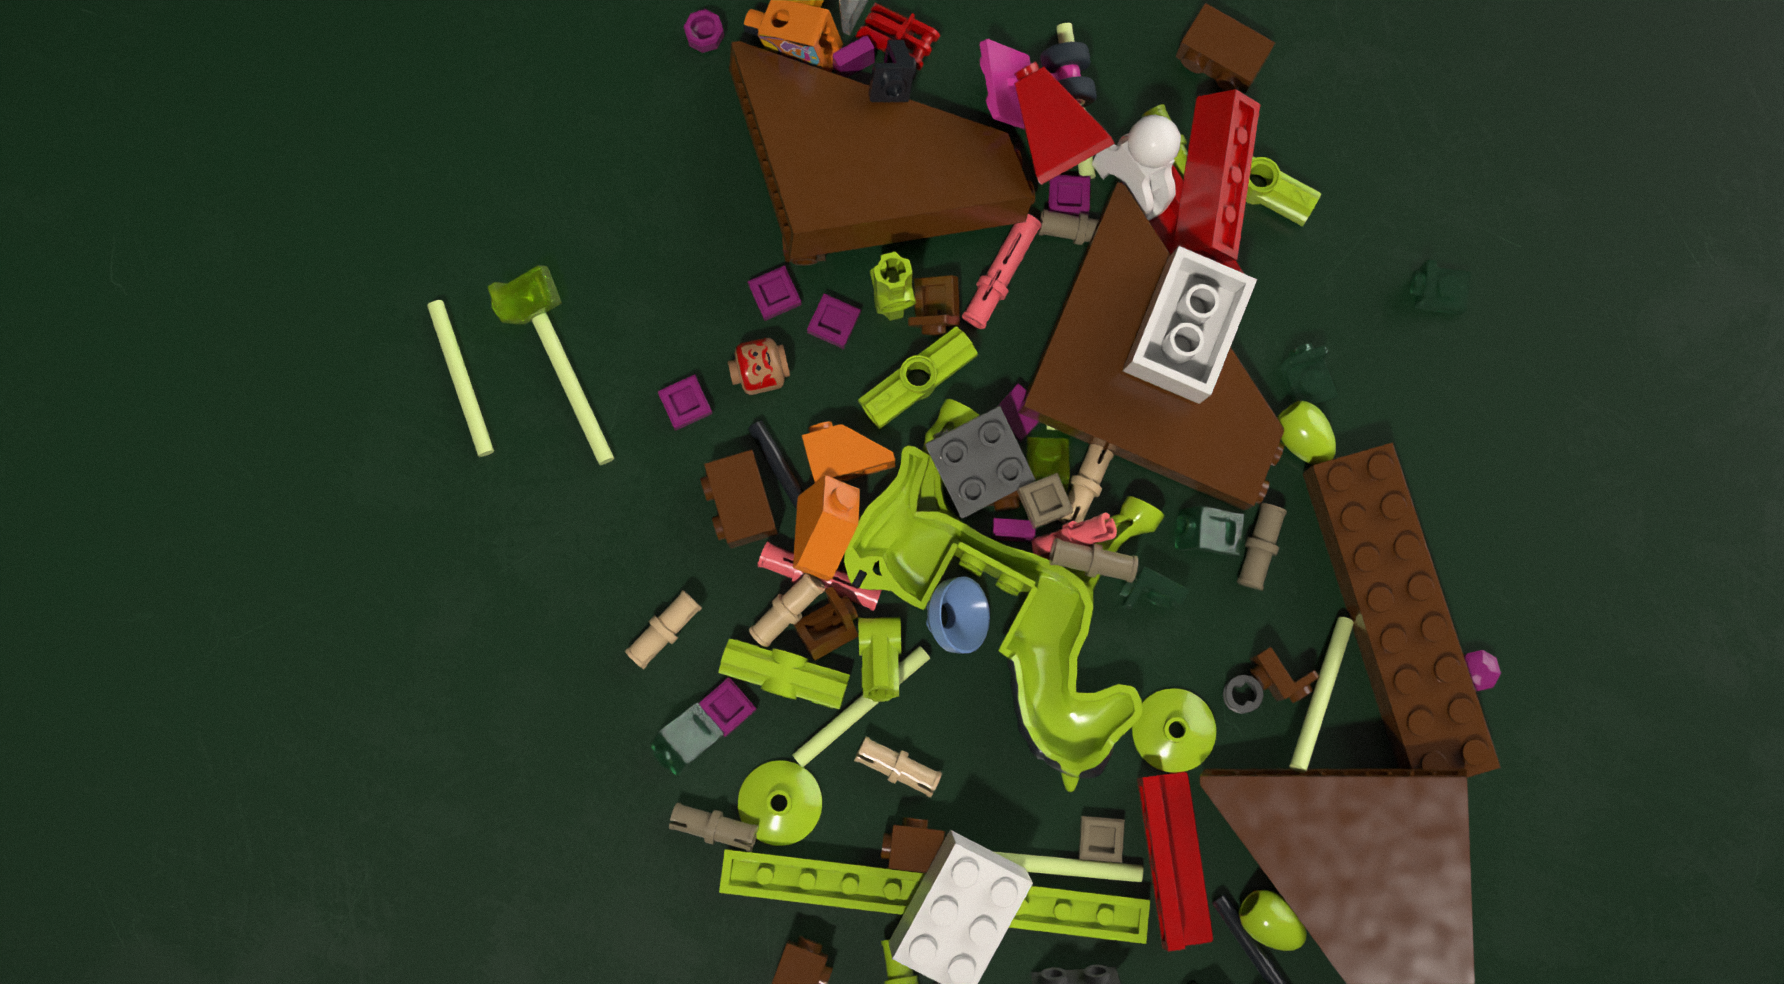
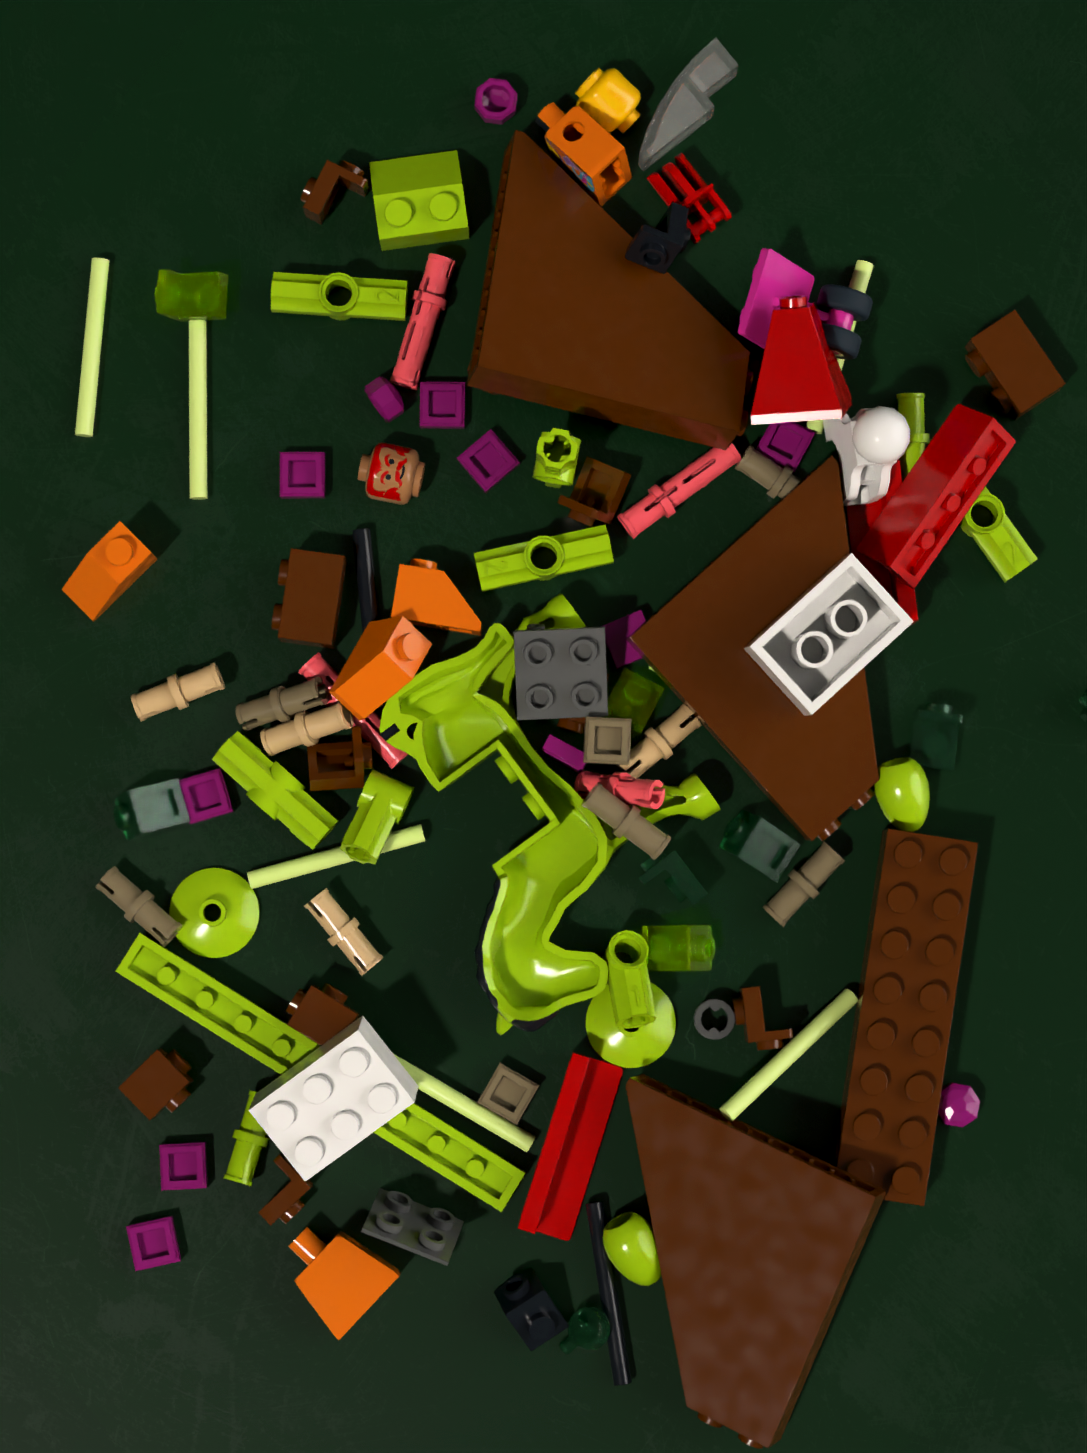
camera: 25 degrees right, 5 degrees up
(558, 554) = (108, 571): none -> orange slope
(594, 166) = (321, 192): none -> reddish brown bracket
(622, 252) = (309, 294): none -> lime piece
(679, 137) = (419, 200): none -> lime slope
(724, 308) = (385, 398): none -> magenta tile
(725, 221) = (427, 306): none -> coral pin
(756, 598) = (282, 704): none -> dark tan pin
(853, 57) = (633, 200): magenta tile -> none
(966, 612) = (481, 815): medium blue piece -> none
(1160, 695) = (630, 982): none -> lime piece
(1184, 648) = (679, 947): none -> clear neon green bracket

